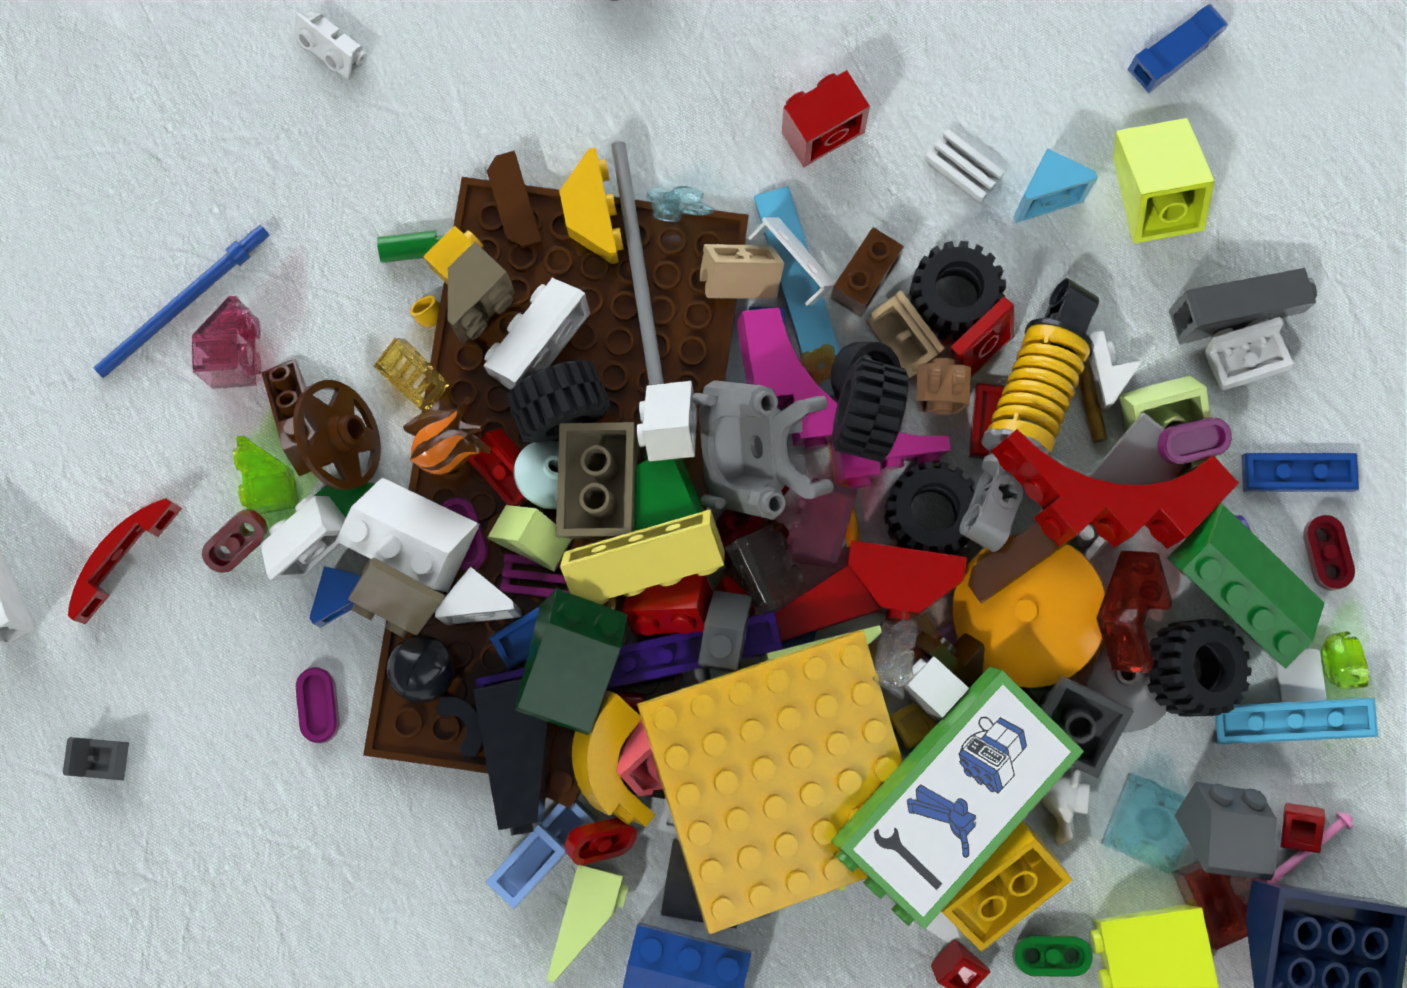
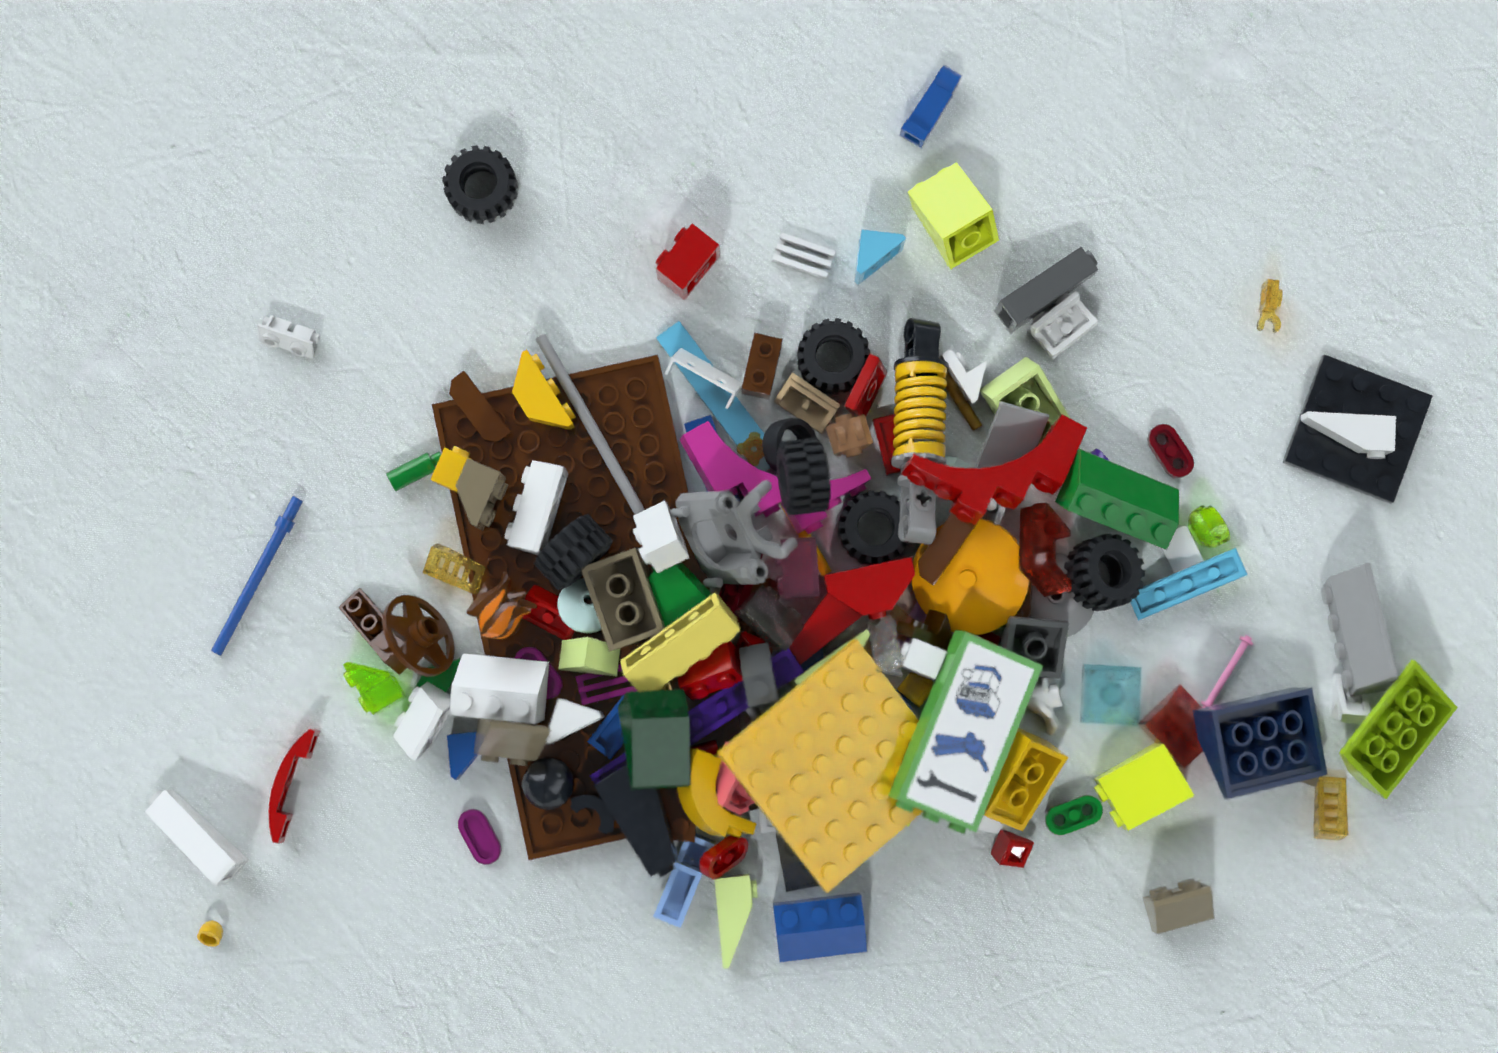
camera: 25 degrees left, 5 degrees up
(95, 758) = (334, 936): dark grey bracket -> none
(225, 347) = (308, 600): clear pink slope -> none
(236, 539) = (372, 738): dark red plate -> none
(425, 311) = (444, 516): yellow hinge -> none
(671, 204) = (600, 365): clear light blue plate -> none
(741, 271) = (668, 400): tan hinge -> none
(1194, 440) = (1045, 407): magenta tile -> none
(1230, 830) = (1166, 680): dark grey slope -> none
(1300, 472) = (1130, 398): blue tile -> none
(1302, 827) = (1218, 657): red slope -> none

